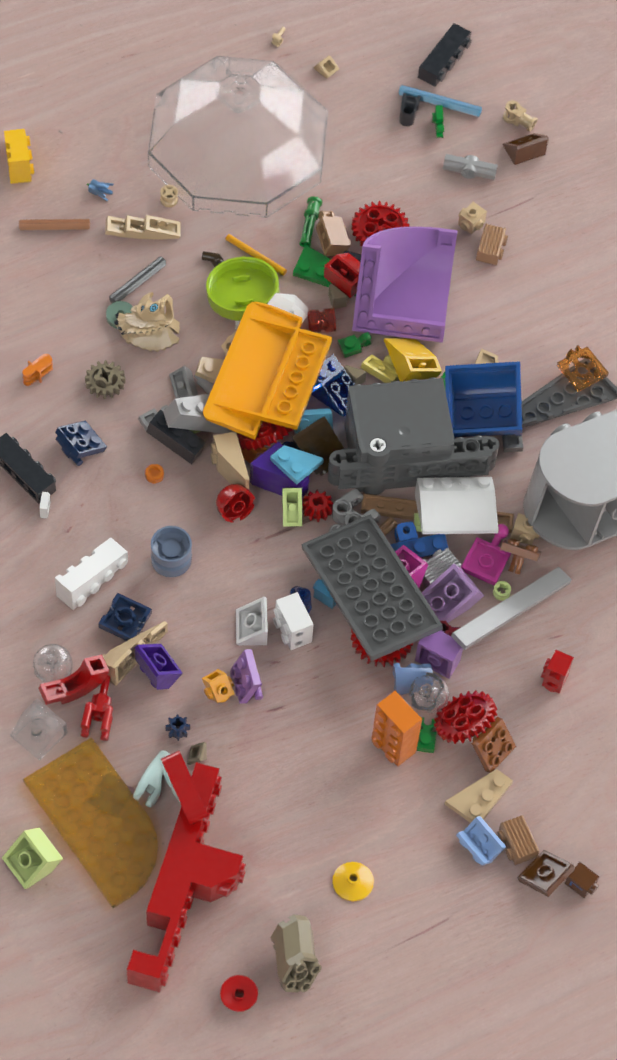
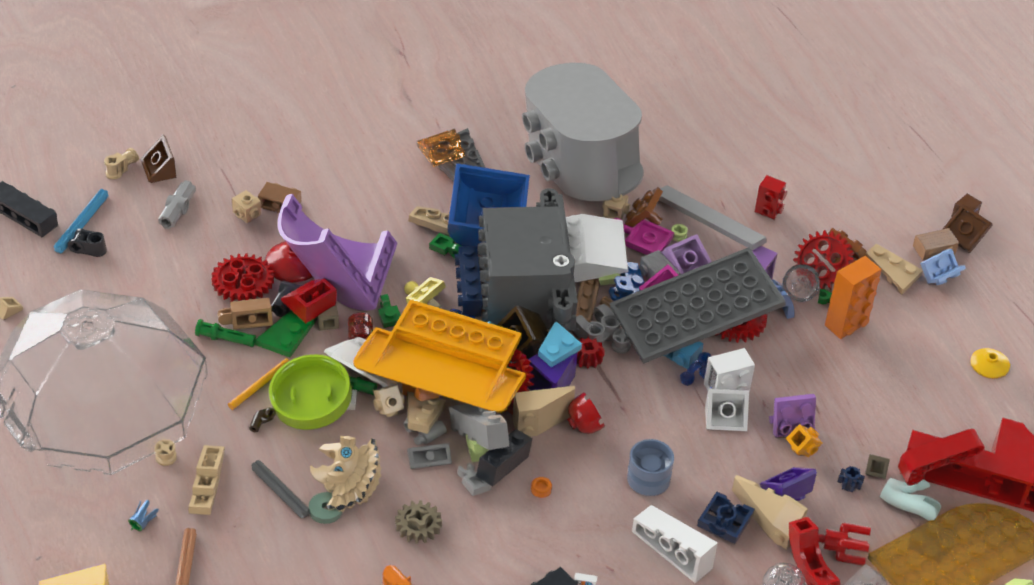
camera: 85 degrees left, 15 degrees down
(79, 441) = (502, 548): dark blue plate -> none
(292, 506) = (592, 369): yellowish green slope -> none
(412, 359) = (421, 262): yellow slope -> none
(438, 119) = (111, 221): green plate -> none

